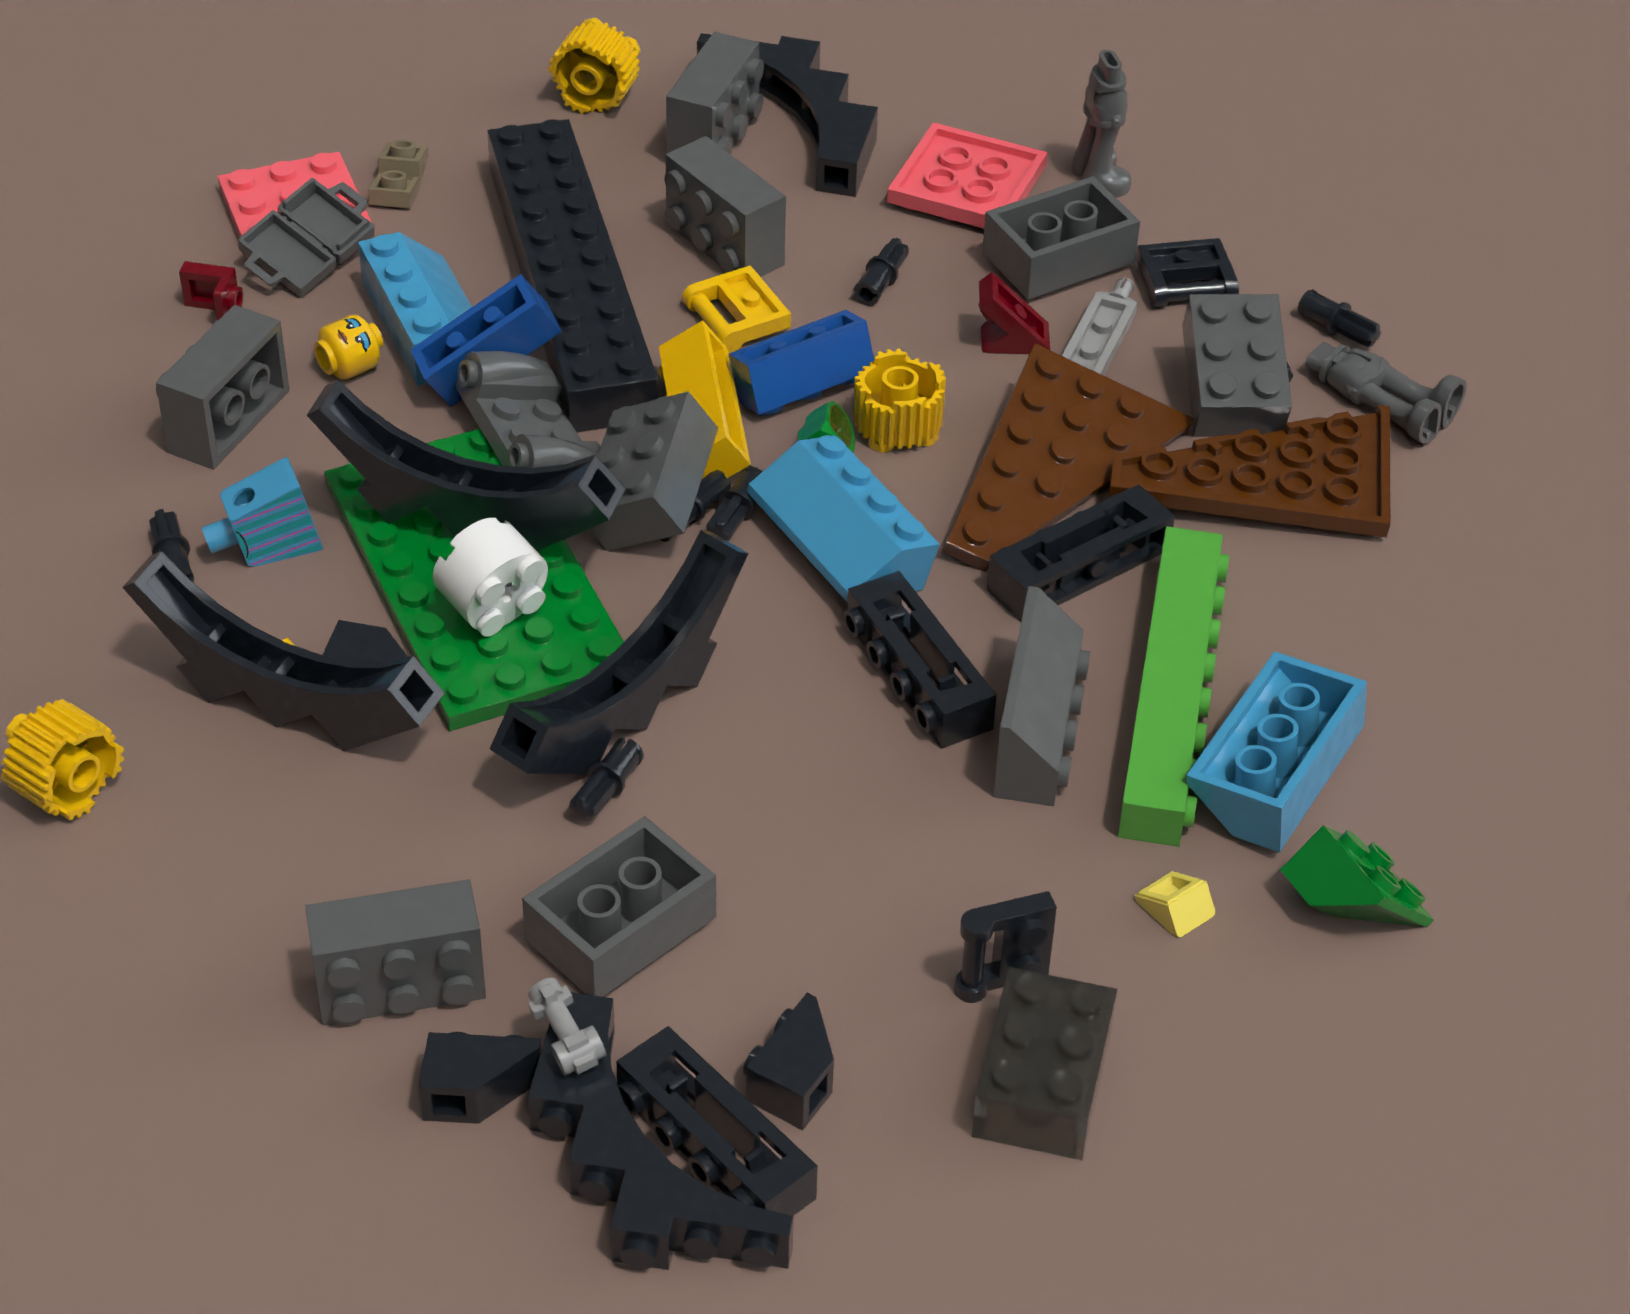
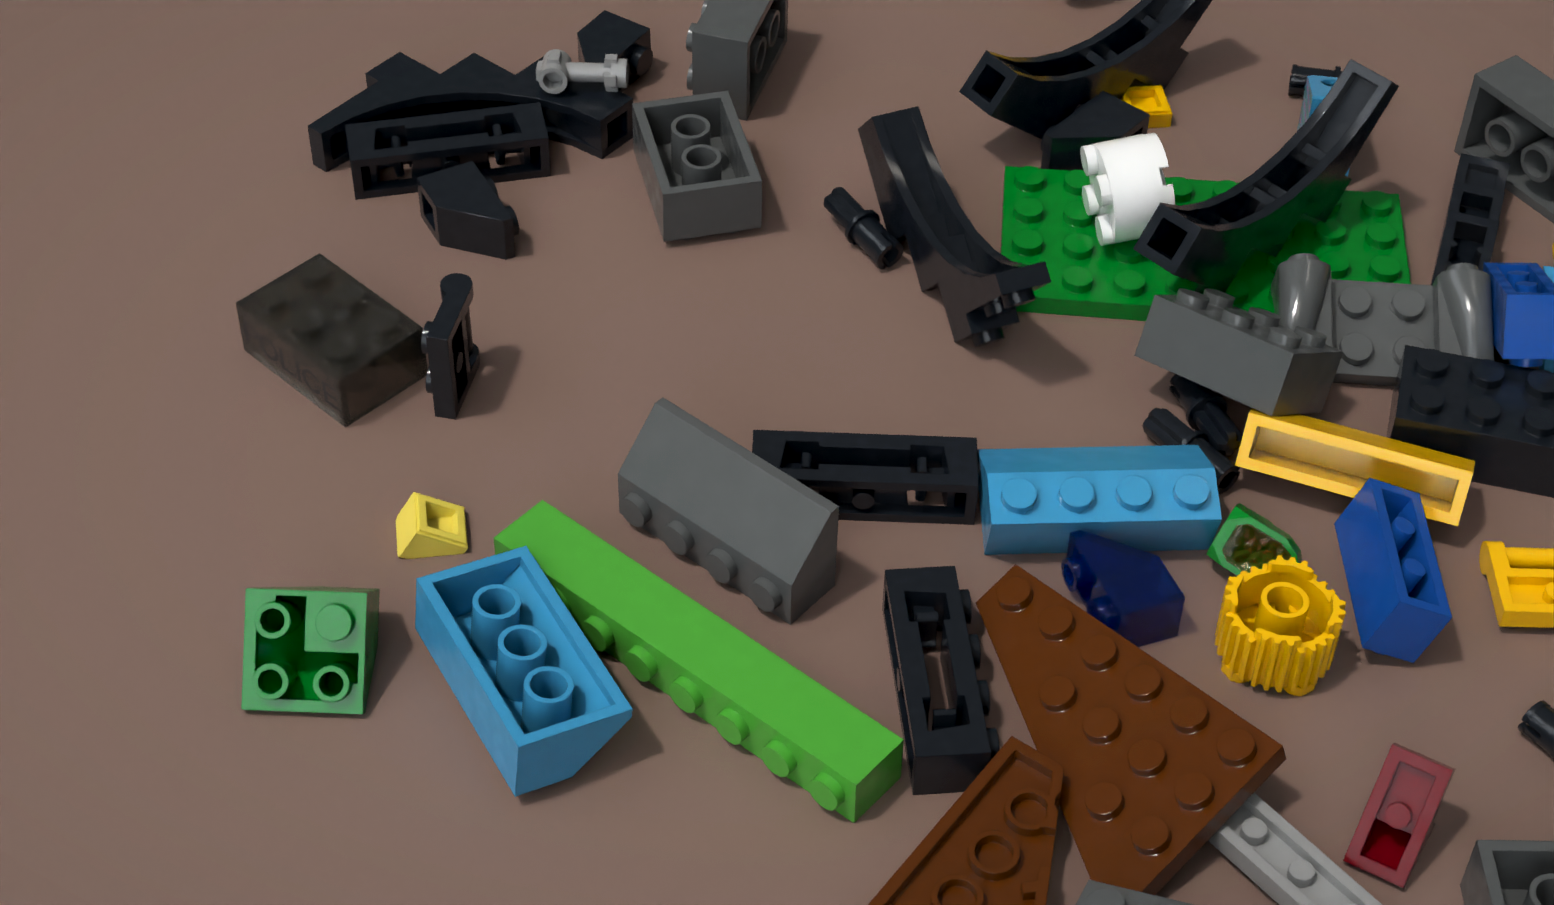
camera: 120 degrees right, 0 degrees up
(295, 432) = (1472, 213): none -> black slope
(927, 481) = (1123, 588): none -> clear blue slope

